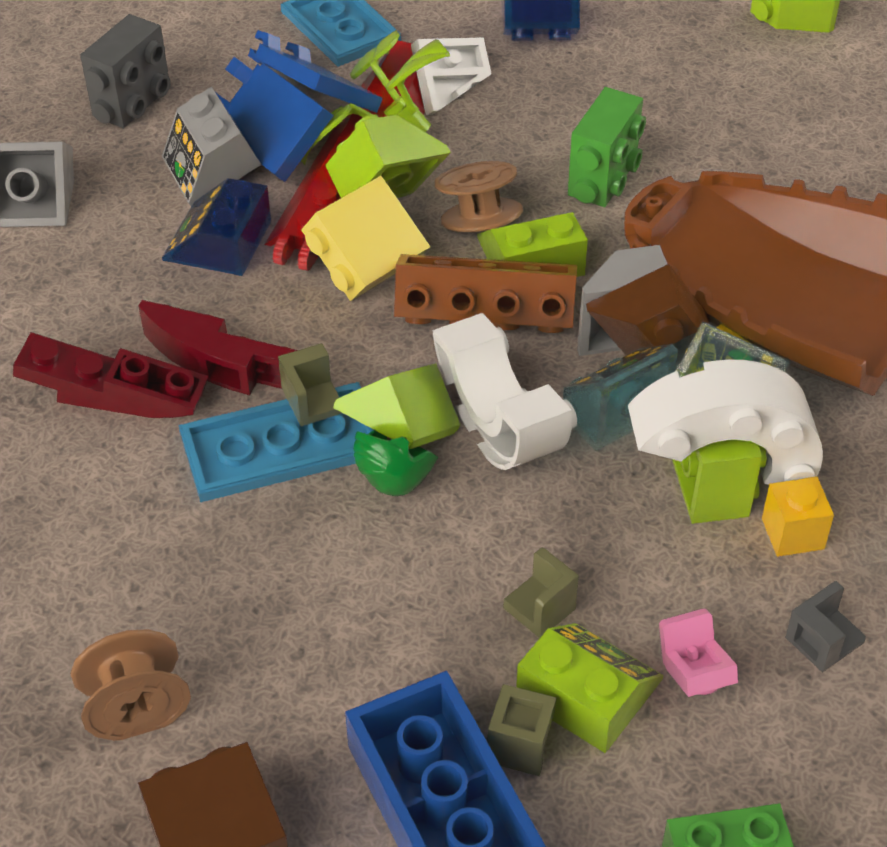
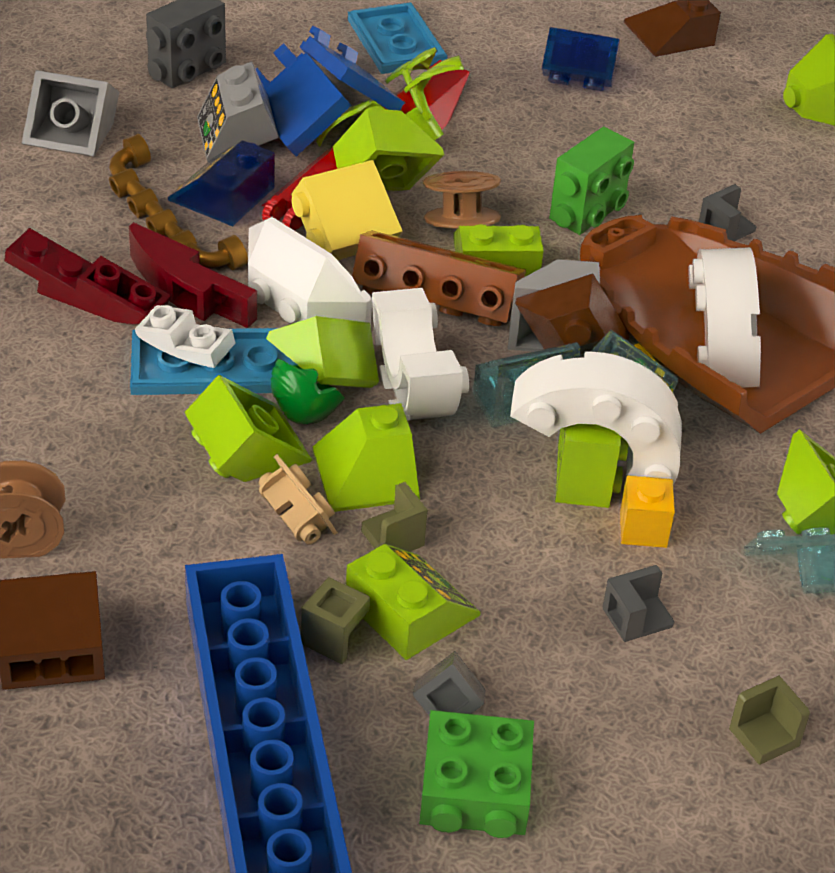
camera: 10 degrees right, 5 degrees down
(168, 288) = (144, 202): none -> pearl gold bar
(234, 423) = (178, 334): none -> white slope
(308, 384) = (253, 316): olive panel -> none
(342, 523) = (243, 431): none -> lime slope
(356, 328) = (301, 277): none -> white wedge
(443, 603) = (288, 488): none -> tan hinge
(453, 75) = (479, 93): white wing -> none
(485, 524) = (367, 458): none -> lime slope
(669, 782) = (449, 687): none -> dark grey panel
(693, 654) = (511, 597): bright pink bracket -> none
(743, 156) = (722, 212): none -> dark grey panel
(806, 258) = (730, 302): none -> white brick

